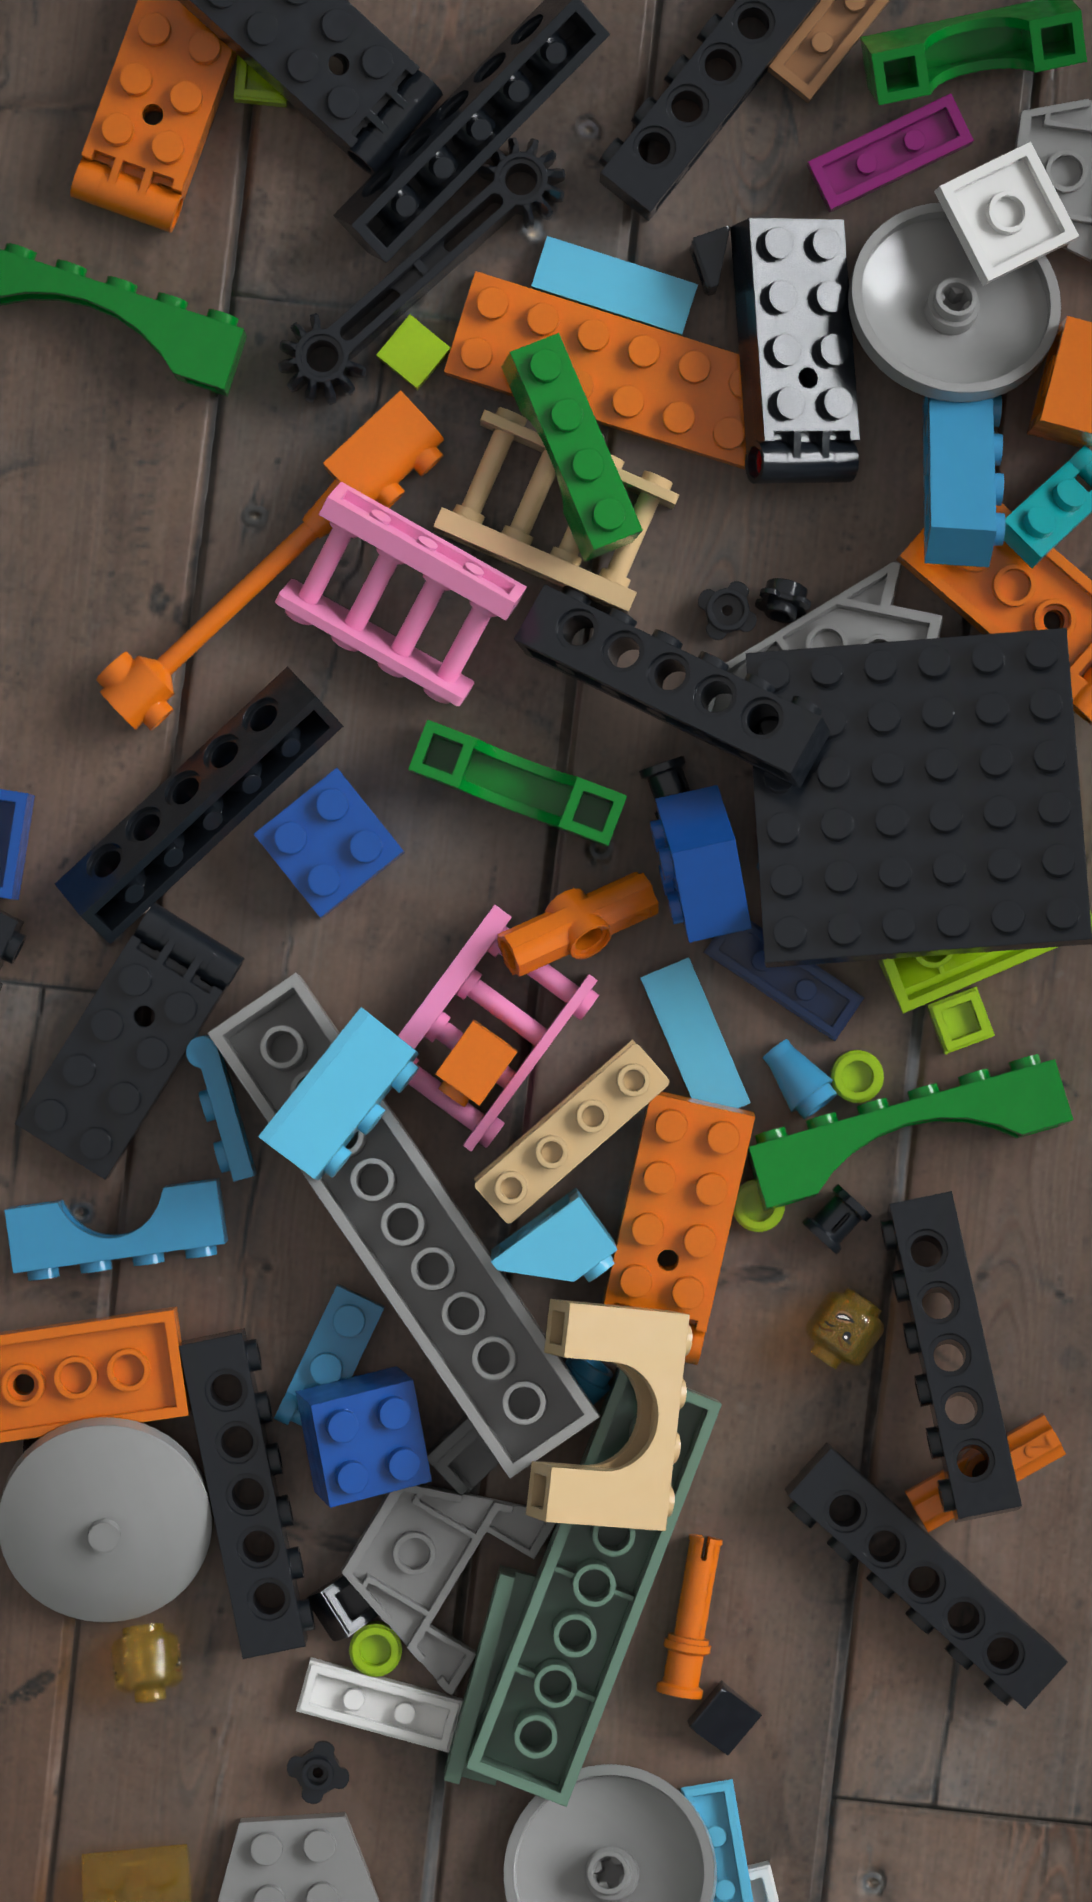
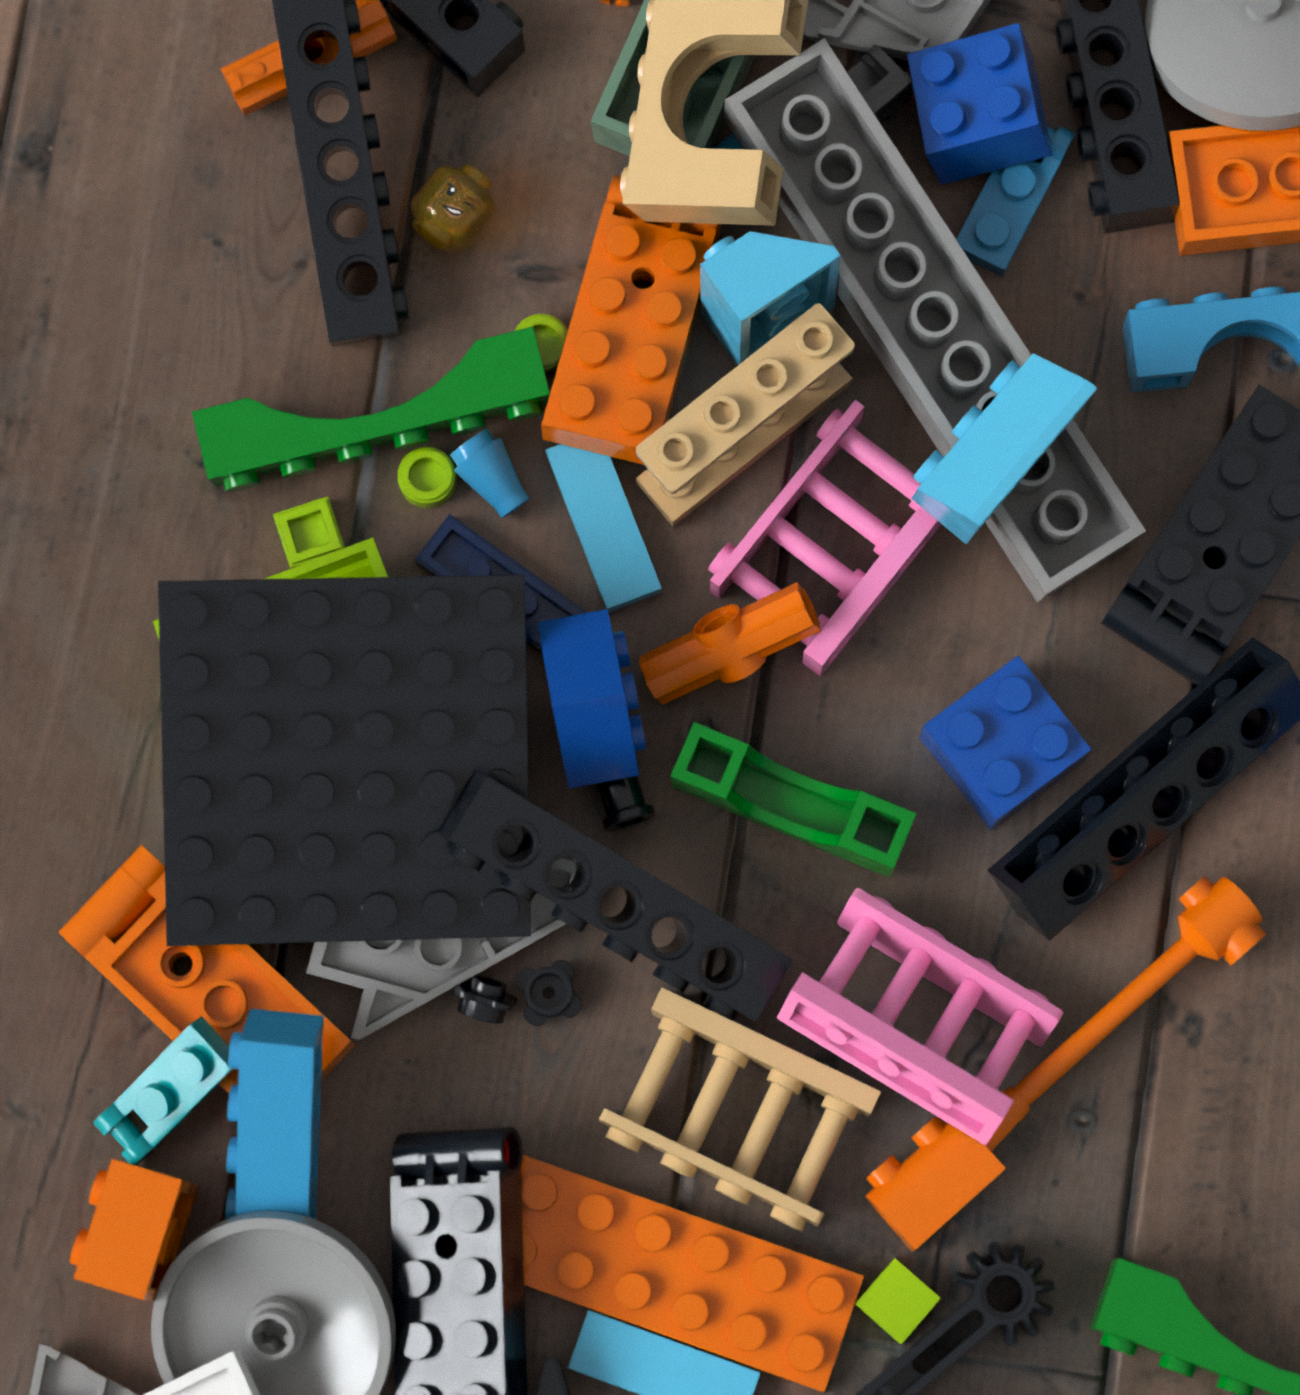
camera: 175 degrees left, 10 degrees down
(221, 1105) = (1128, 463): dark azure plate -> none
(474, 1065) = (849, 483): orange brick -> none
(587, 476) = (718, 1174): green arch -> none
(837, 1219) = (456, 323): black bush -> none

